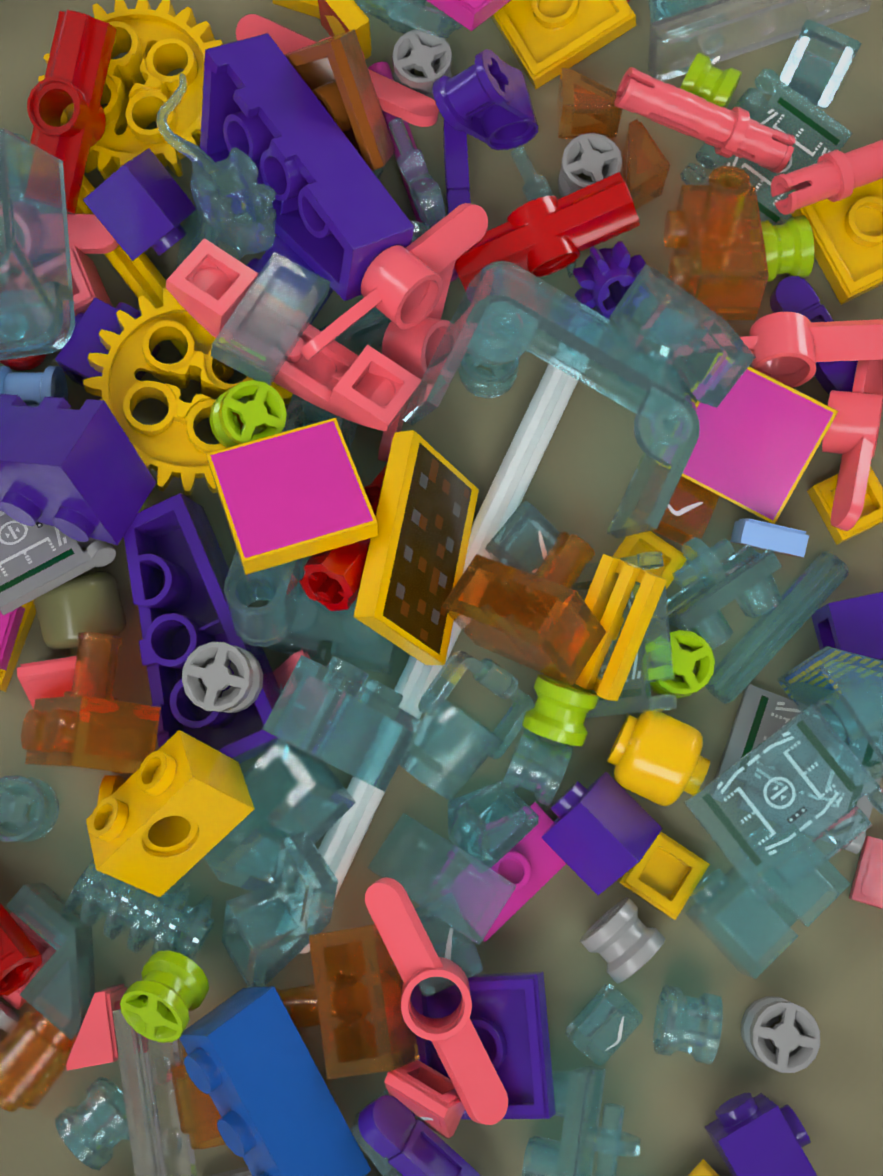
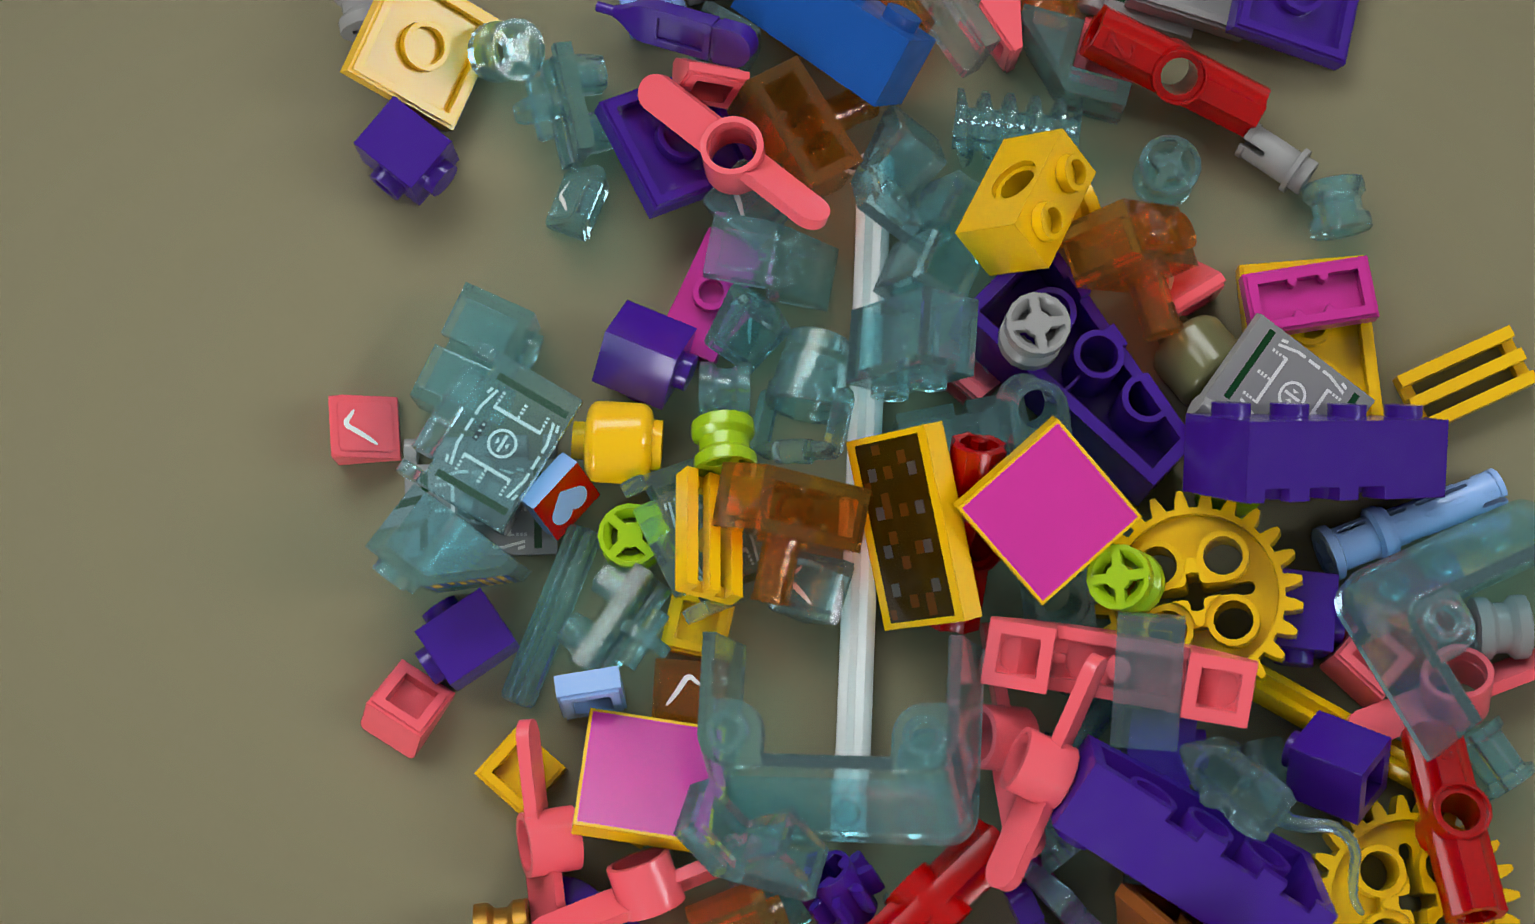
camera: 160 degrees right, 0 degrees up
(162, 999) = (961, 64): lime wheel -> none
(622, 940) = (590, 275): light grey wheel -> none
(665, 875) = (571, 350): yellow tile -> none
(688, 1024) = (507, 229): clear light blue wheel -> none
(735, 727) = (560, 496): none -> tile
(794, 1037) = (419, 241): light grey wheel -> none

